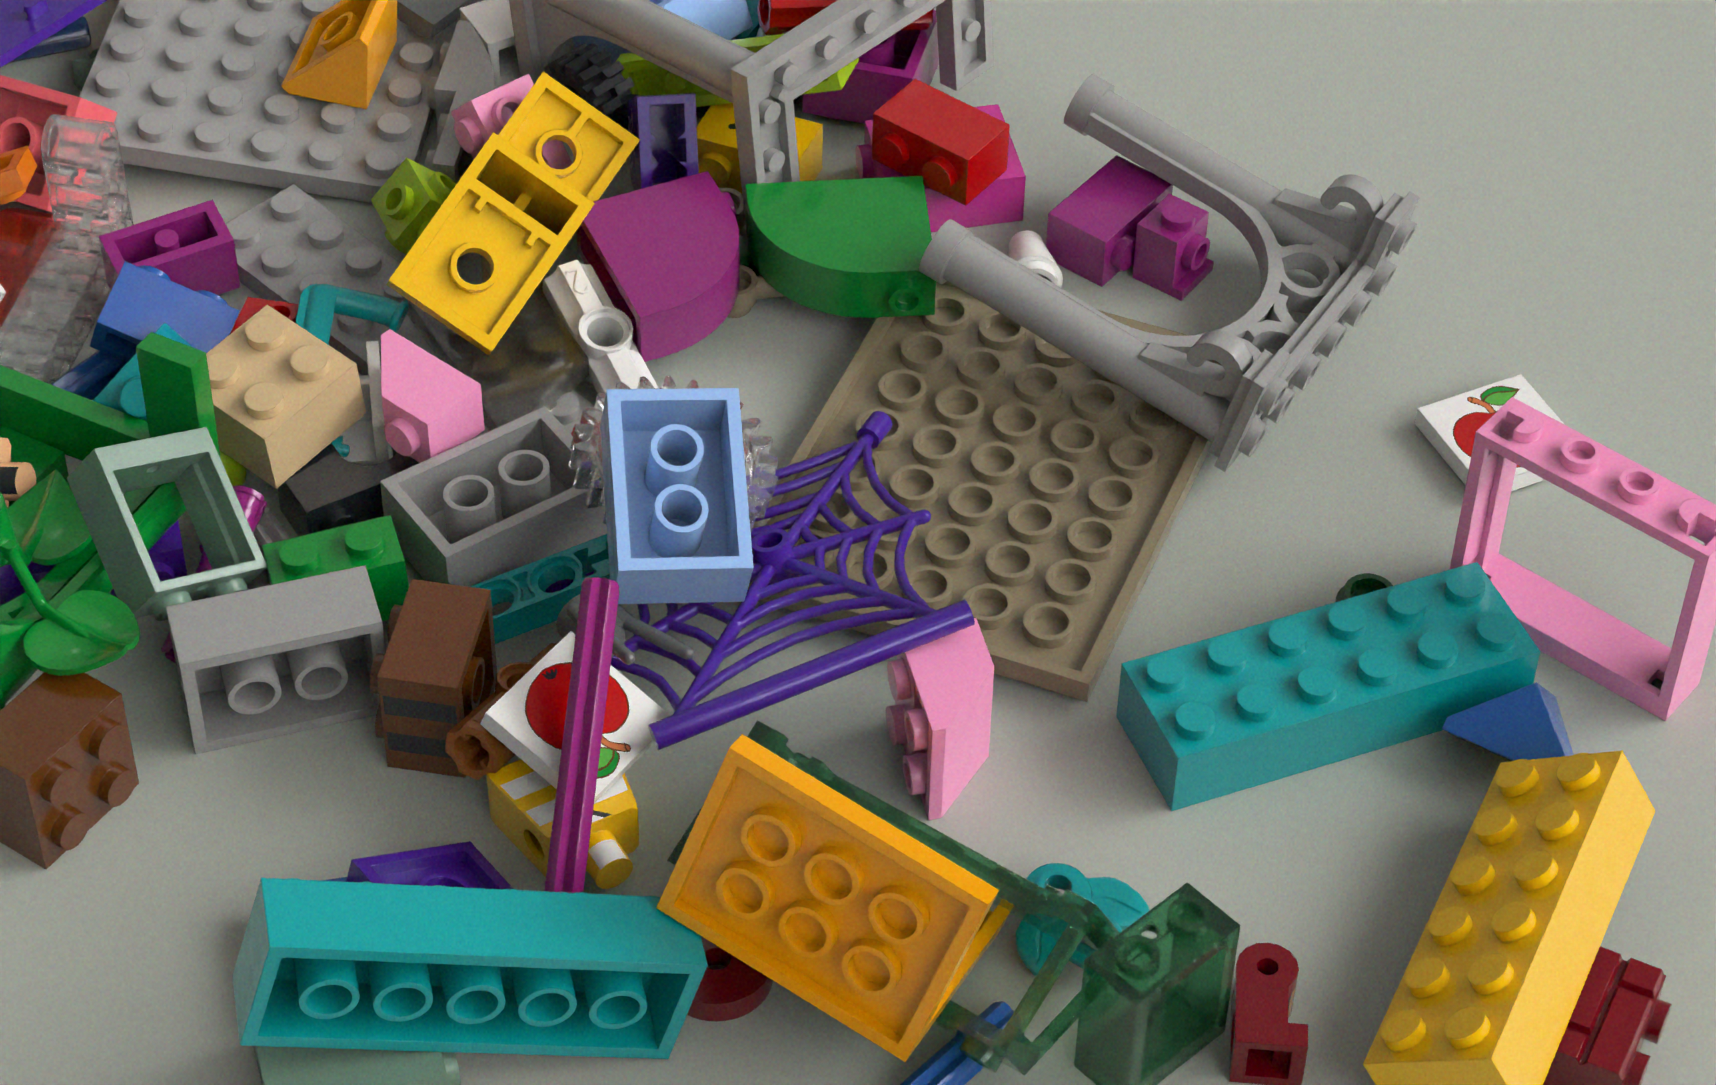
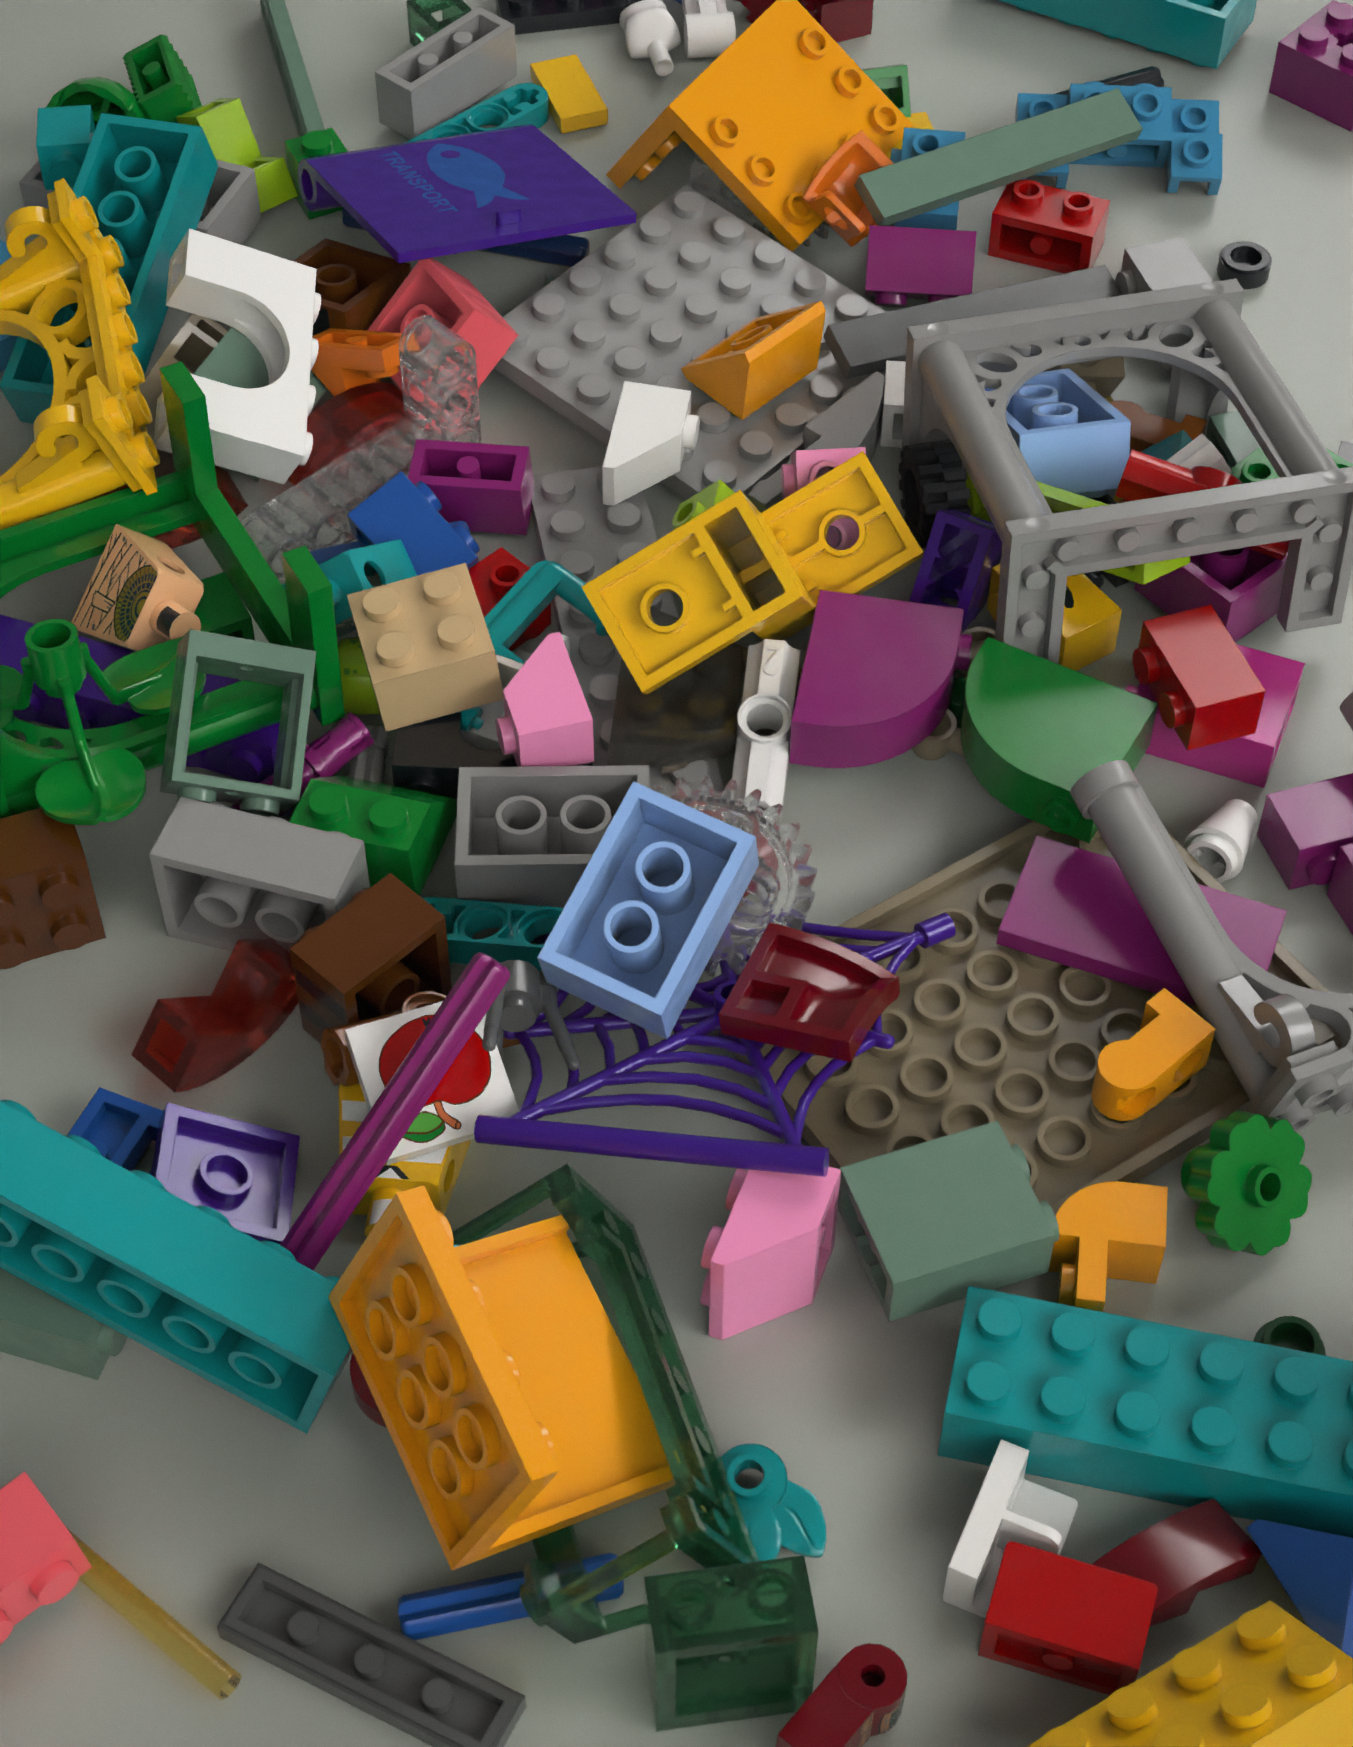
camera: 35 degrees right, 5 degrees up
(306, 151) = (647, 439): none -> white slope
(321, 800) = (209, 1035): none -> clear red brick
(838, 509) = (807, 995): none -> dark red plate
(995, 364) = (1085, 916): none -> magenta tile
(1067, 627) = (946, 1219): none -> sand green brick
(1119, 441) = (1154, 1061): none -> light orange leg
(1184, 590) = (1110, 1234): none -> light orange brick
(1252, 497) = (1248, 1182): none -> green plant
(1277, 836) = (1004, 1512): none -> white panel
(1370, 860) = (1067, 1619): none -> red panel
(1405, 786) = (1185, 1556): none -> dark red slope

